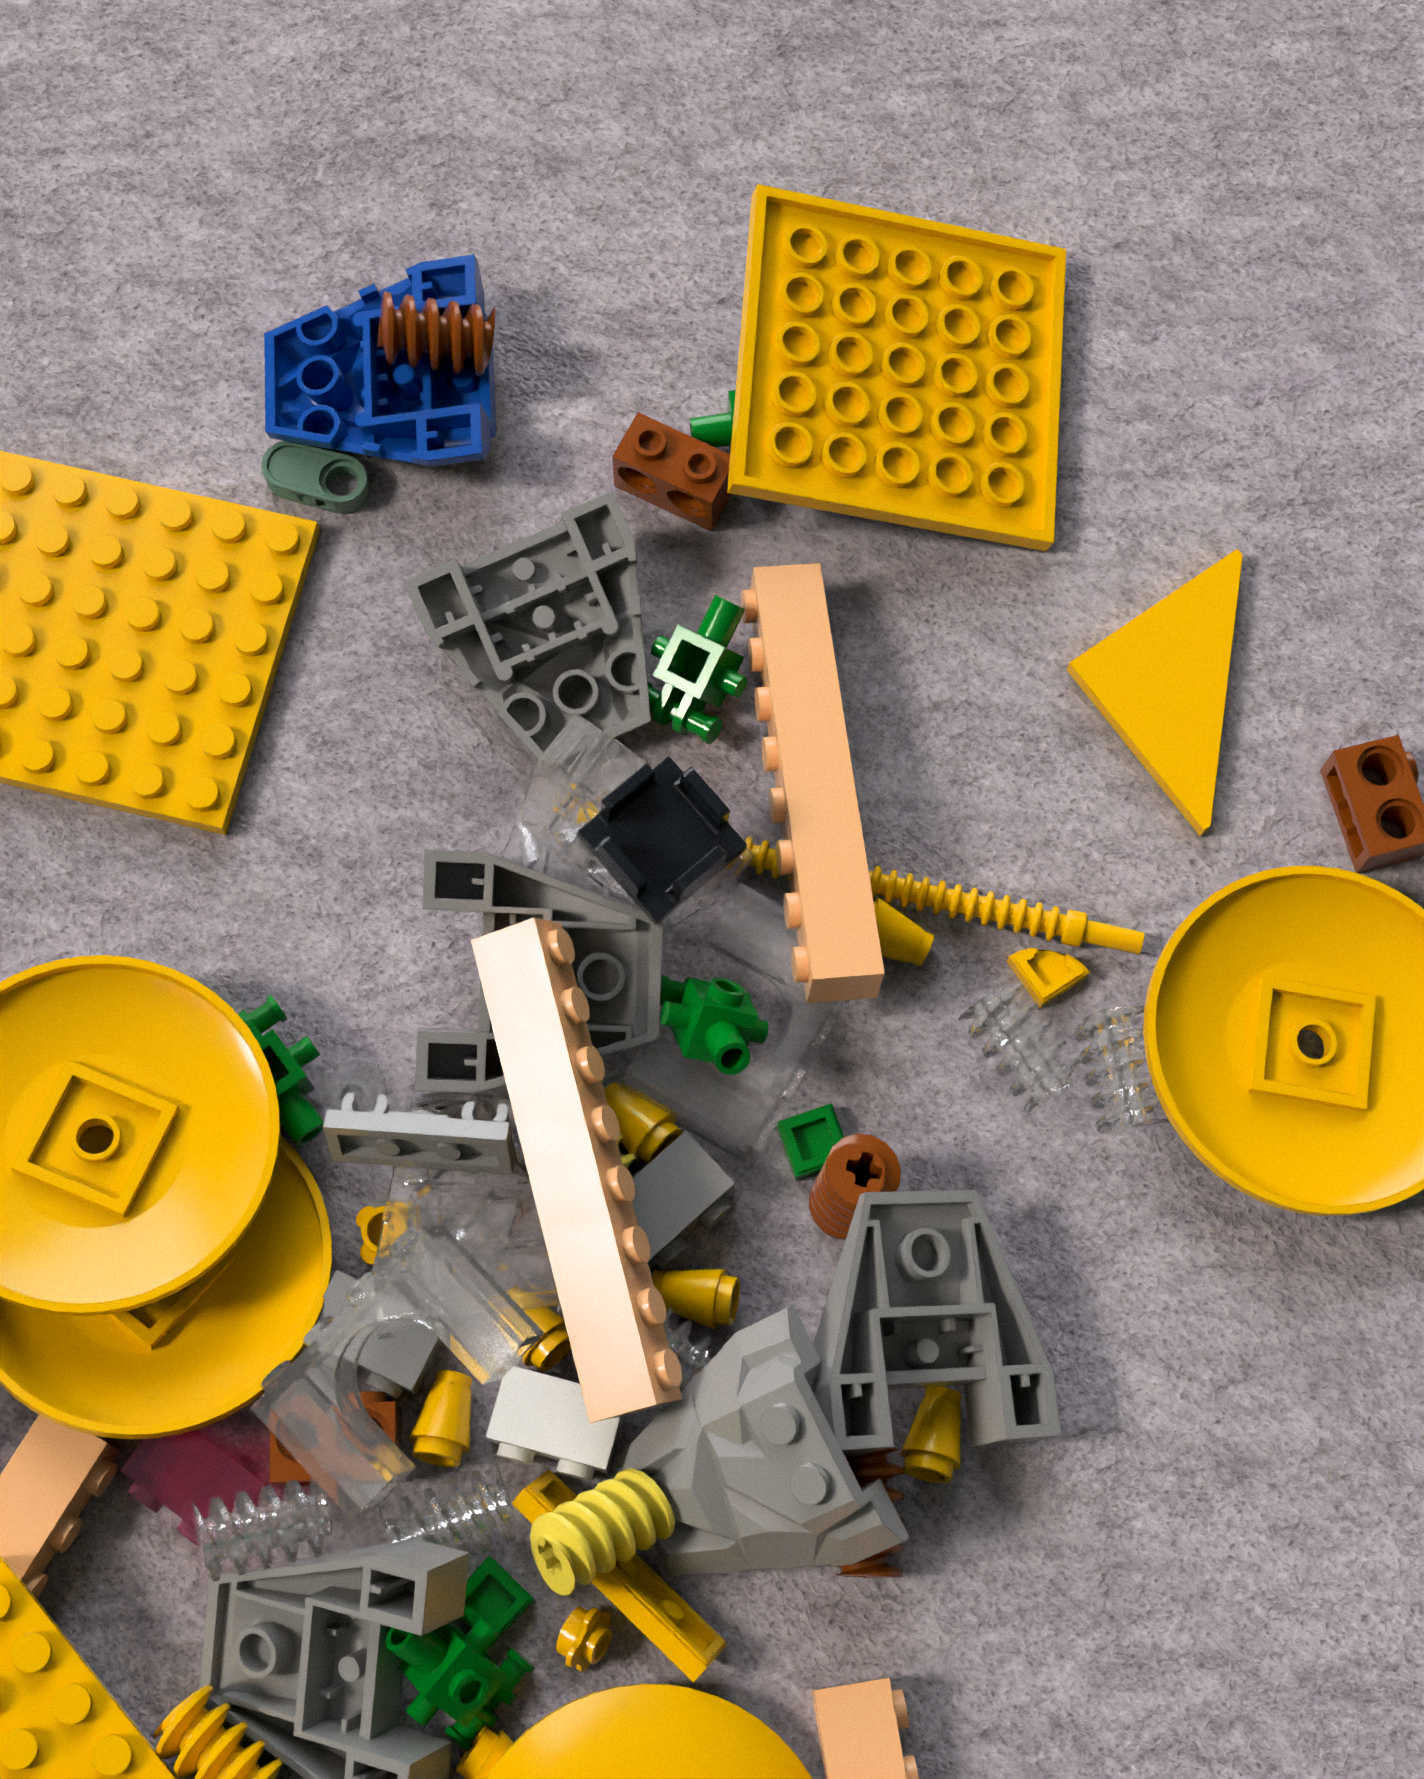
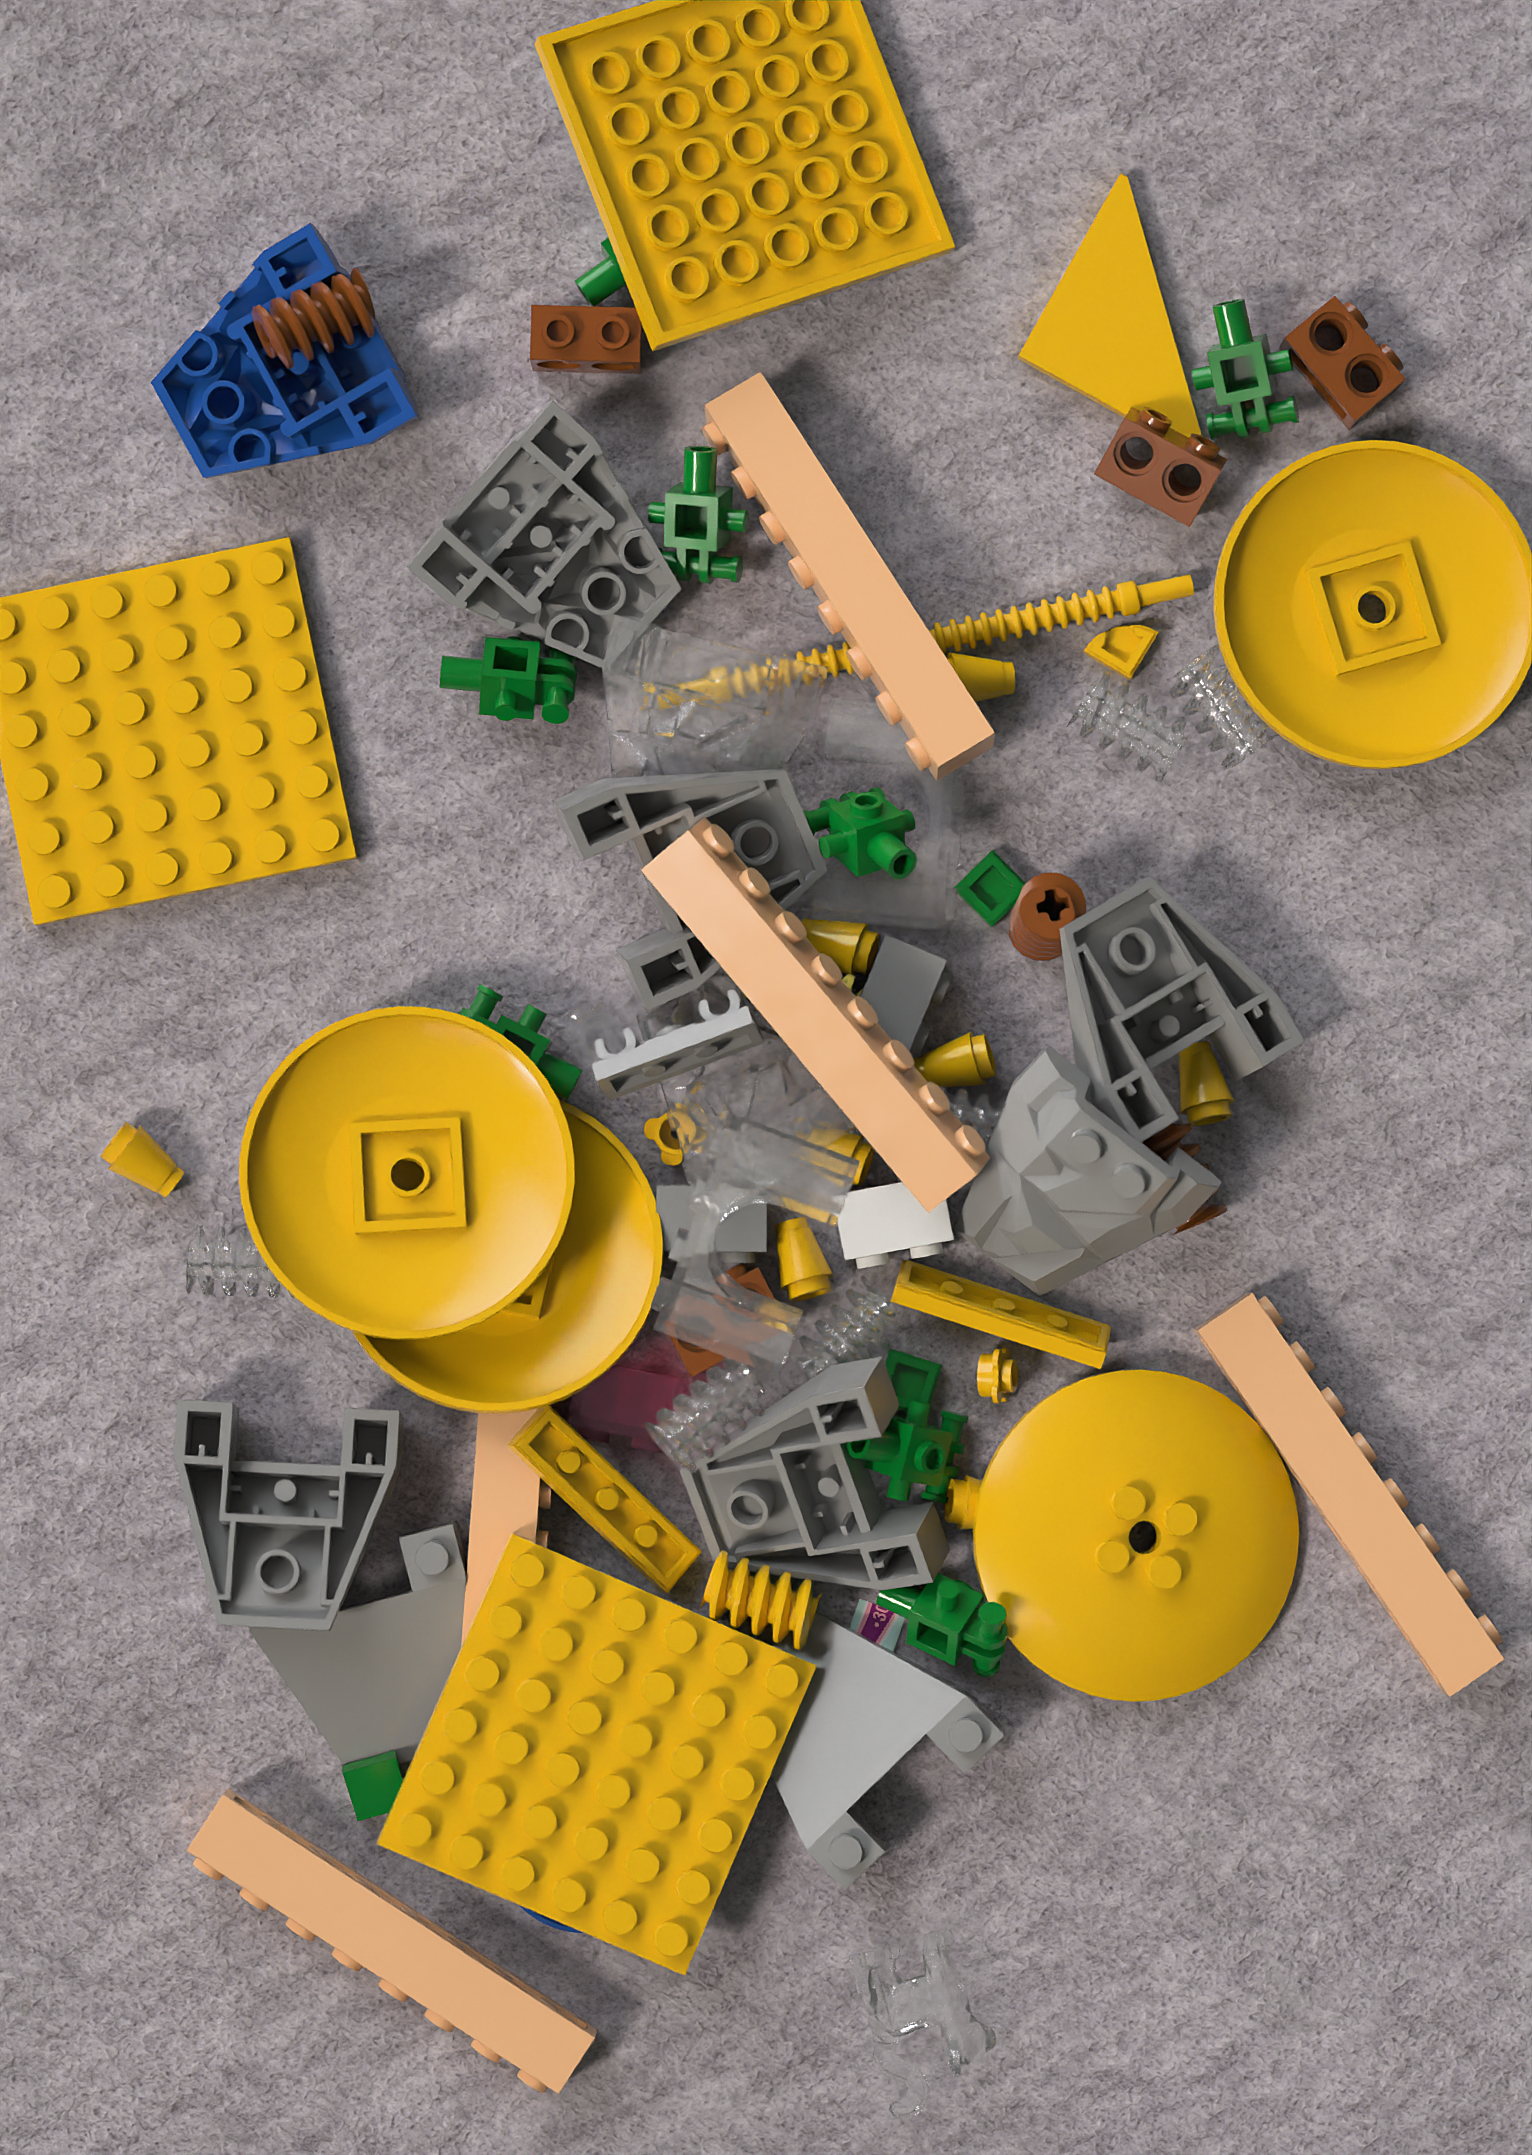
camera: 25 degrees left, 15 degrees up
(118, 1569) = (604, 1498): none -> yellow tile
(303, 476) = (252, 495): sand green piece -> none
(452, 732) = (515, 679): none -> green piece
(600, 1529) = (975, 1290): light yellow piece -> none
(662, 836) = (756, 704): black panel -> none
(1151, 825) = (1154, 478): none -> dark orange brick
(1277, 766) = (1243, 371): none -> green piece

